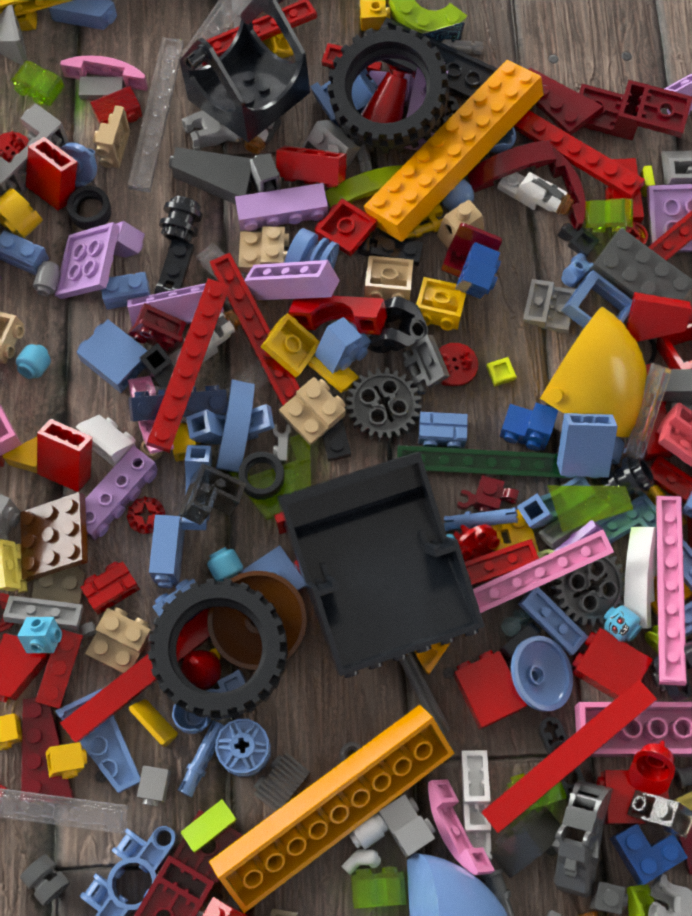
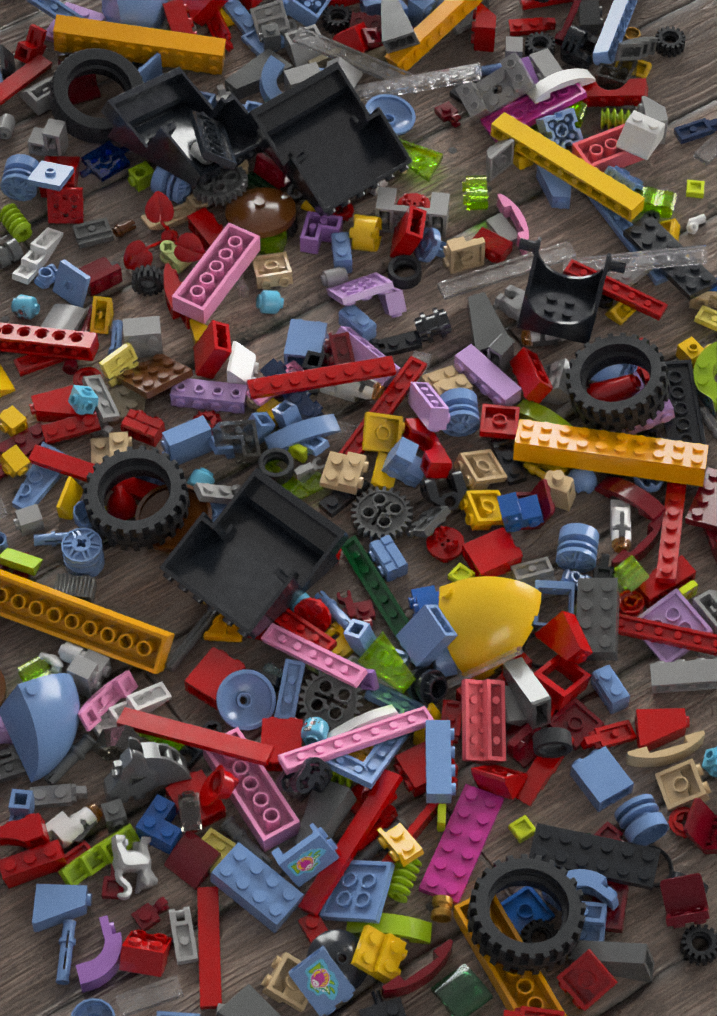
camera: 60 degrees right, 15 degrees down
(253, 442) = (298, 452): none -> neon yellow tile
(258, 554) = (215, 493): none -> light grey plate
(499, 328) = (492, 553): none -> red brick
(549, 247) = (577, 547): none -> medium blue wheel

